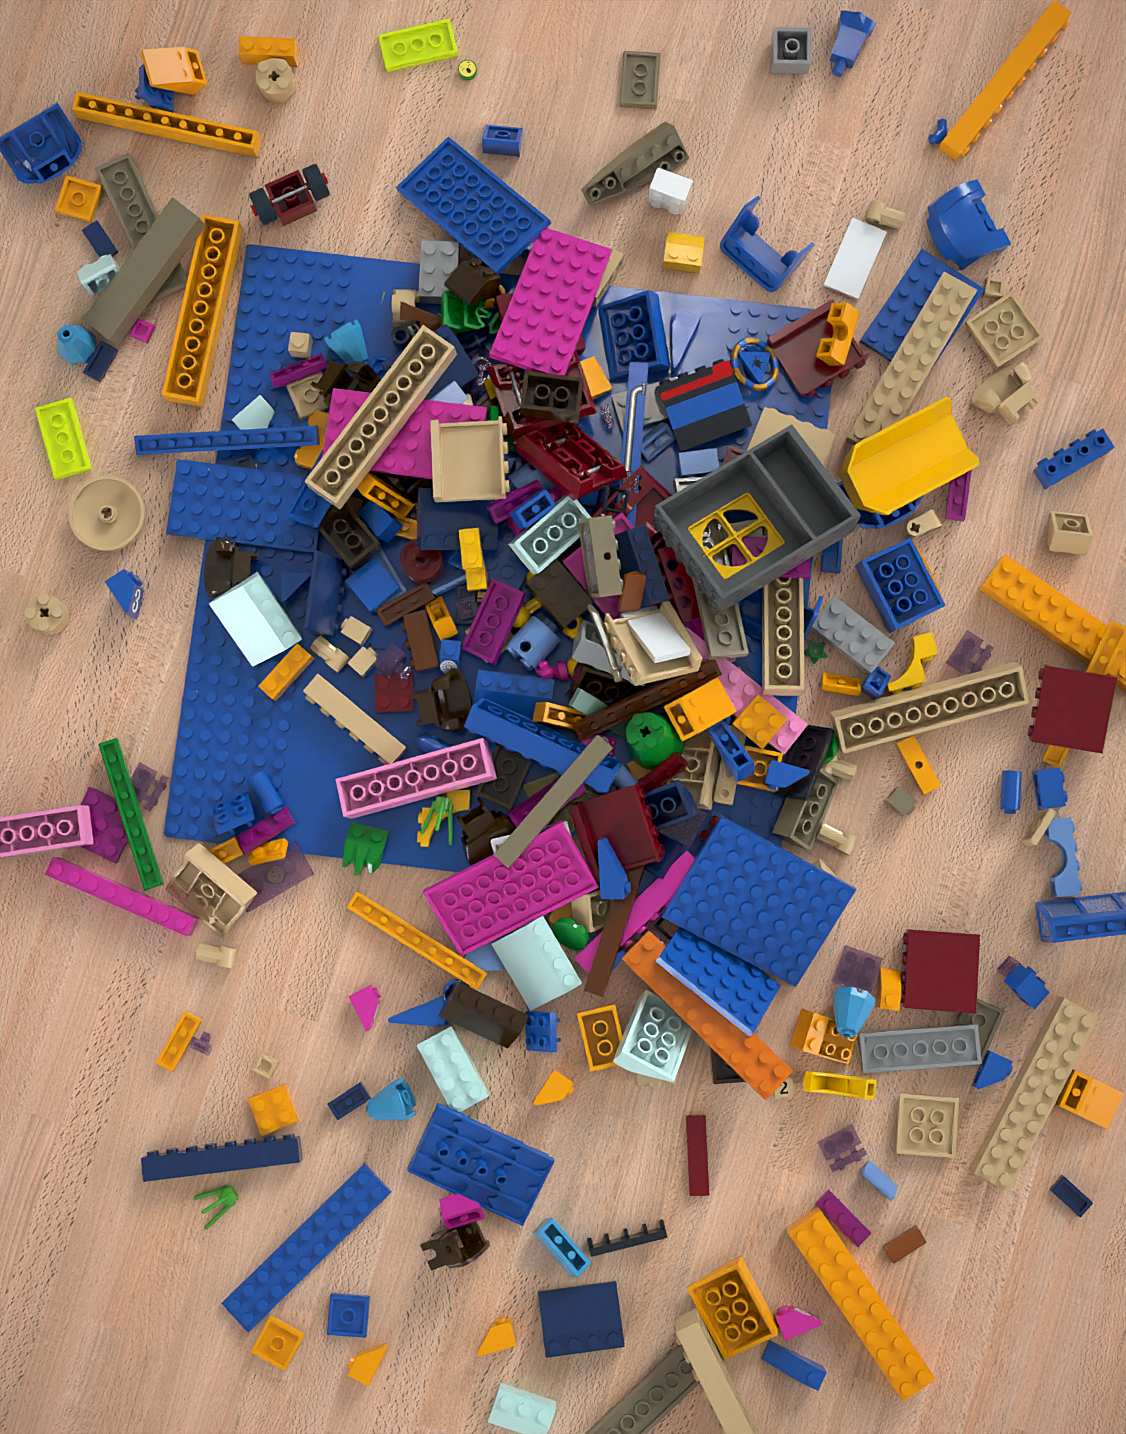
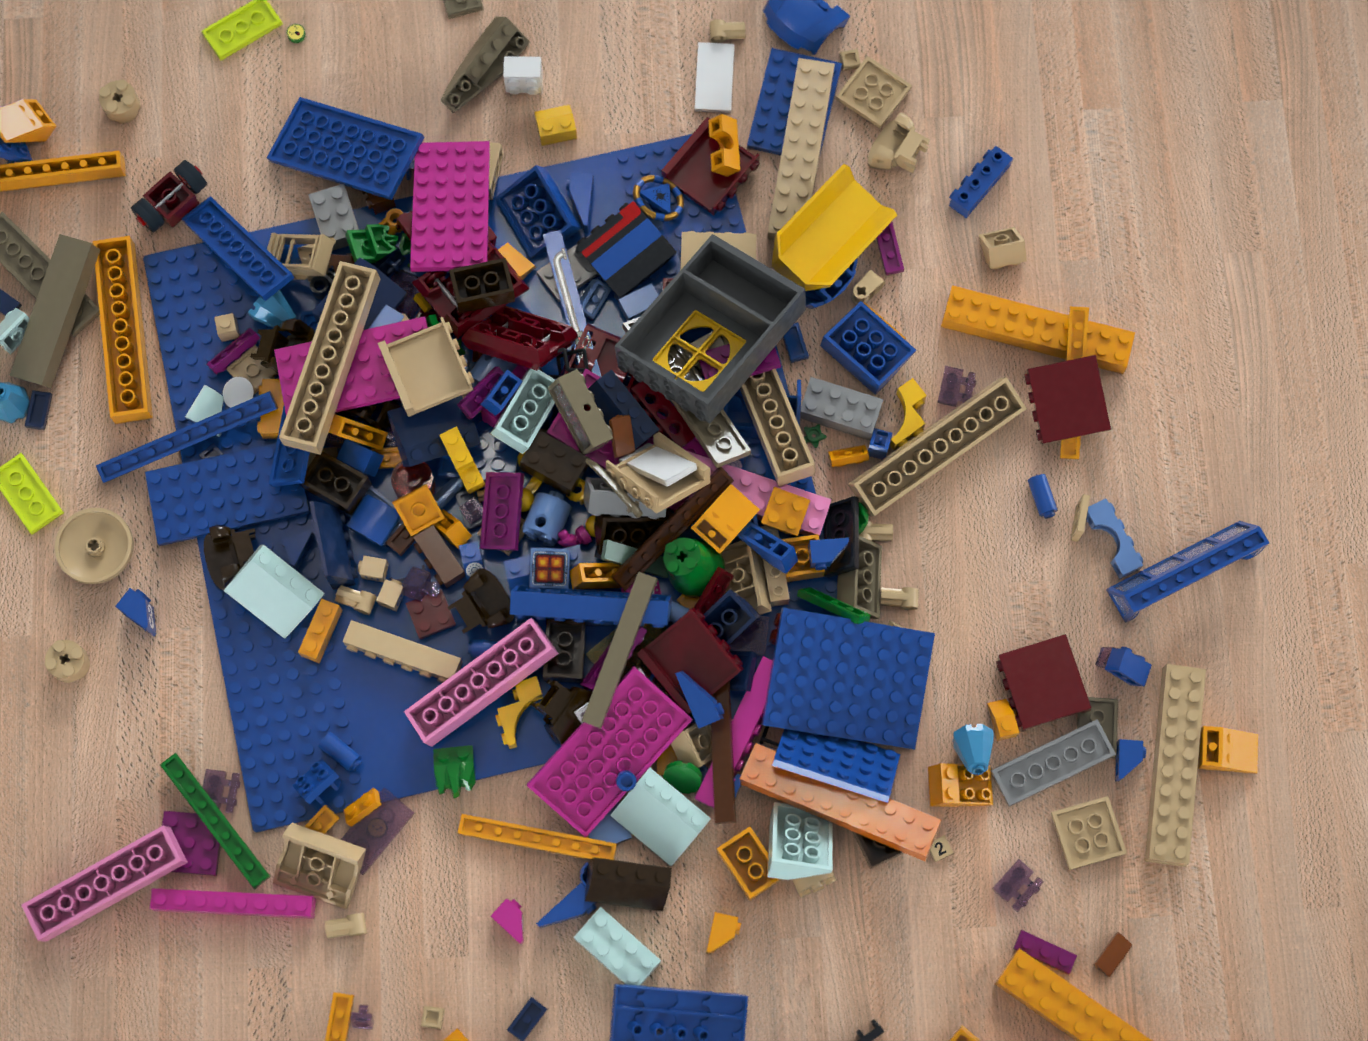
camera: 25 degrees left, 10 degrees down
(142, 331) = (69, 368): dark pink tile -> none
(257, 49) = (93, 79): light orange brick -> none
(265, 830) = (352, 787): magenta plate -> none
(289, 412) = (237, 391): none -> white sticker
(336, 271) = (238, 248): none -> blue plate
(392, 1102) = (569, 1003): dark azure cone -> none
(408, 310) = (319, 258): none -> tan piece
(416, 591) = (418, 510): none -> light orange tile
(441, 805) = (515, 699): bright green plant -> none
(473, 281) = (371, 212): dark brown slope -> none
(502, 140) = (351, 84): blue slope -> none
(516, 920) = (626, 780): none -> blue tile
(518, 693) = (549, 568): none -> tile
(541, 1031) = (689, 880): blue plate -> none
(607, 417) = (539, 291): clear purple tile -> none
(697, 1155) = (883, 944): dark red tile -> none
(757, 256) = (622, 105): blue windscreen -> none
(771, 827) = (833, 605): none -> green tile
(839, 1084) = (990, 824): yellow arch -> none
(857, 969) = (965, 709): clear purple plate -> none
(879, 1179) = (1064, 902): medium blue slope -> none
(901, 801) = (945, 542): dark tan brick -> none
(924, 775) = (939, 494): light orange tile -> none
(1049, 788) = (1076, 480): blue brick -> none
(1071, 1196) = (1249, 849): dark blue tile -> none

